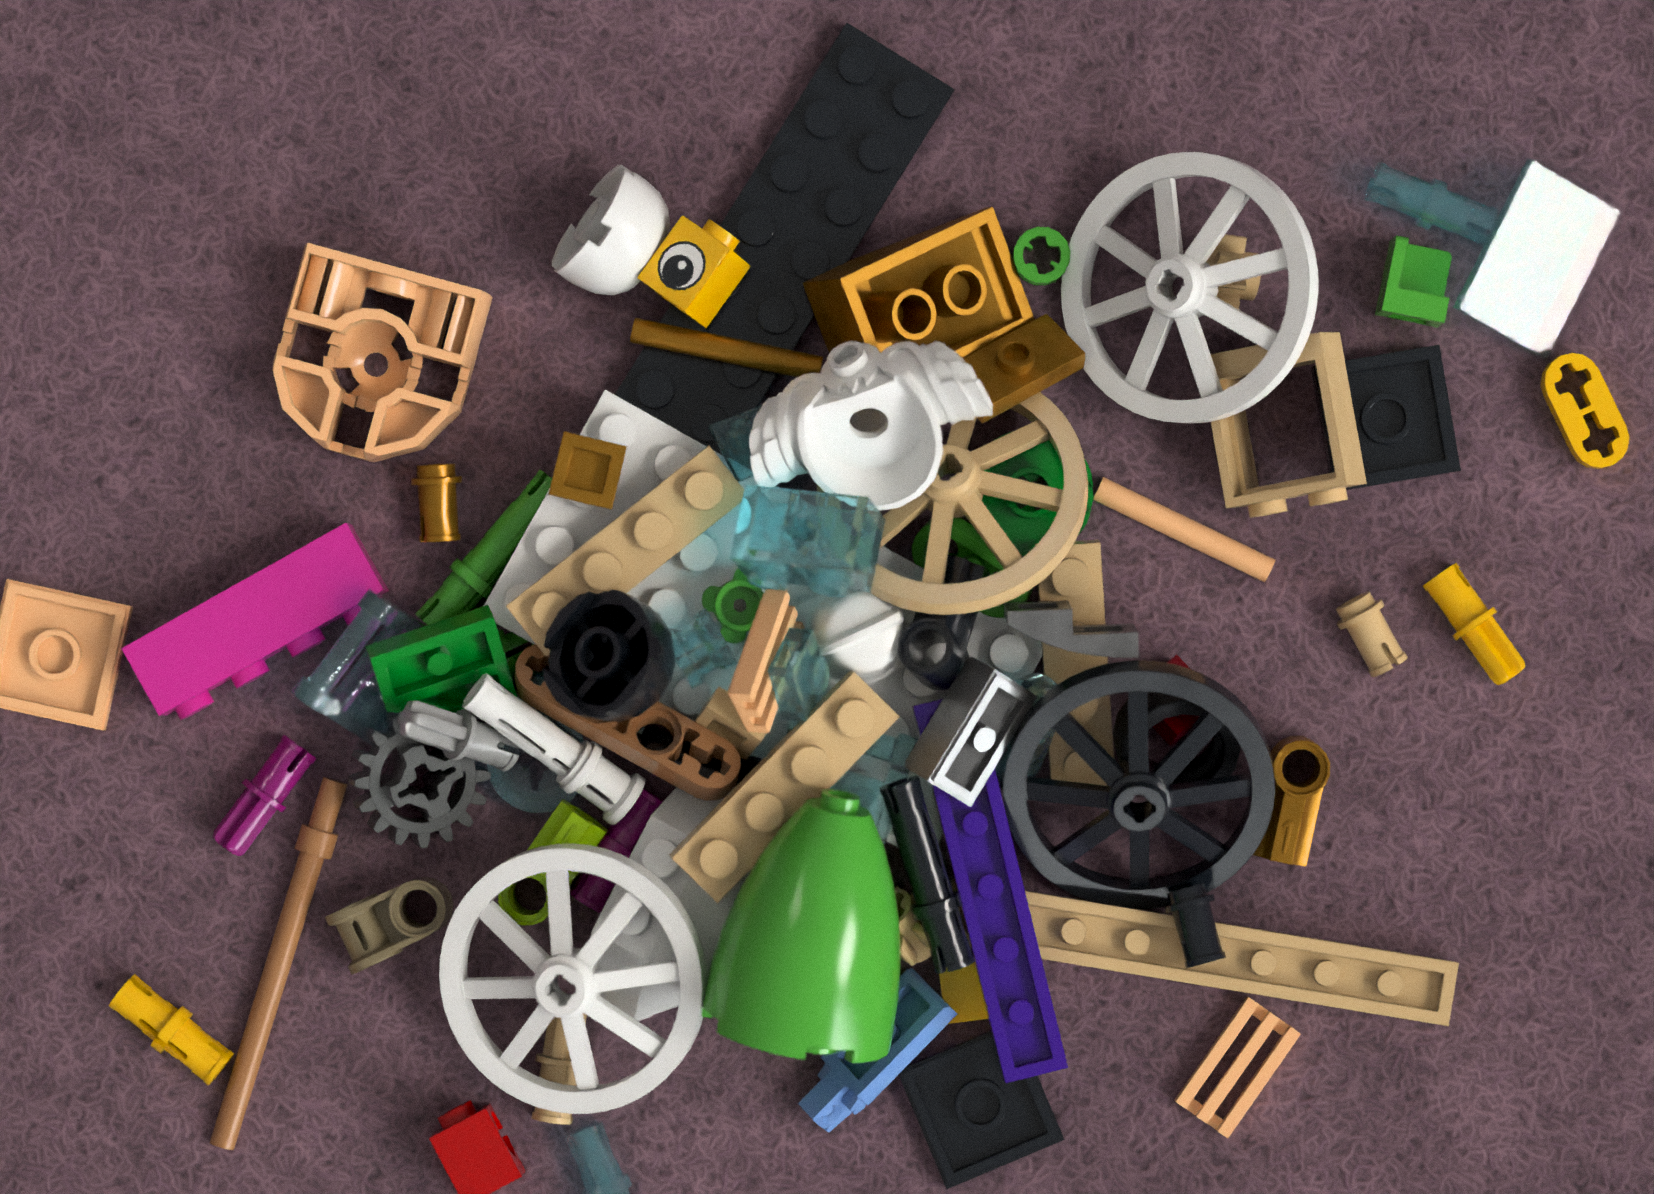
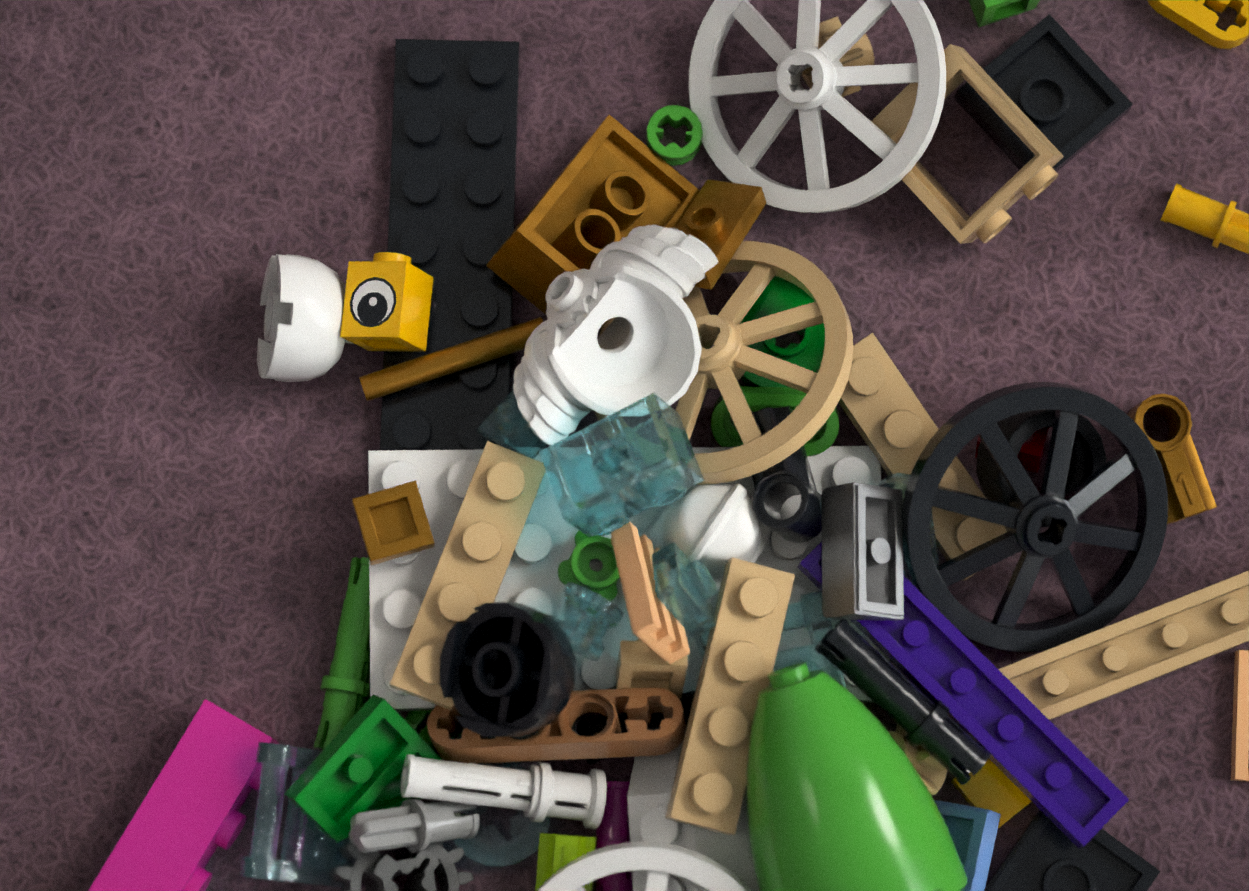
camera: 35 degrees left, 10 degrees down
(401, 417) = (84, 518): light nougat connector -> none
(437, 502) = (278, 638): pearl gold pin -> none
(1053, 625) = (883, 416): flat silver slope -> none
(1184, 529) = (934, 290): light nougat bar -> none
(1195, 925) = (1157, 610): black pin -> none
(1370, 633) = (1143, 282): tan pin -> none

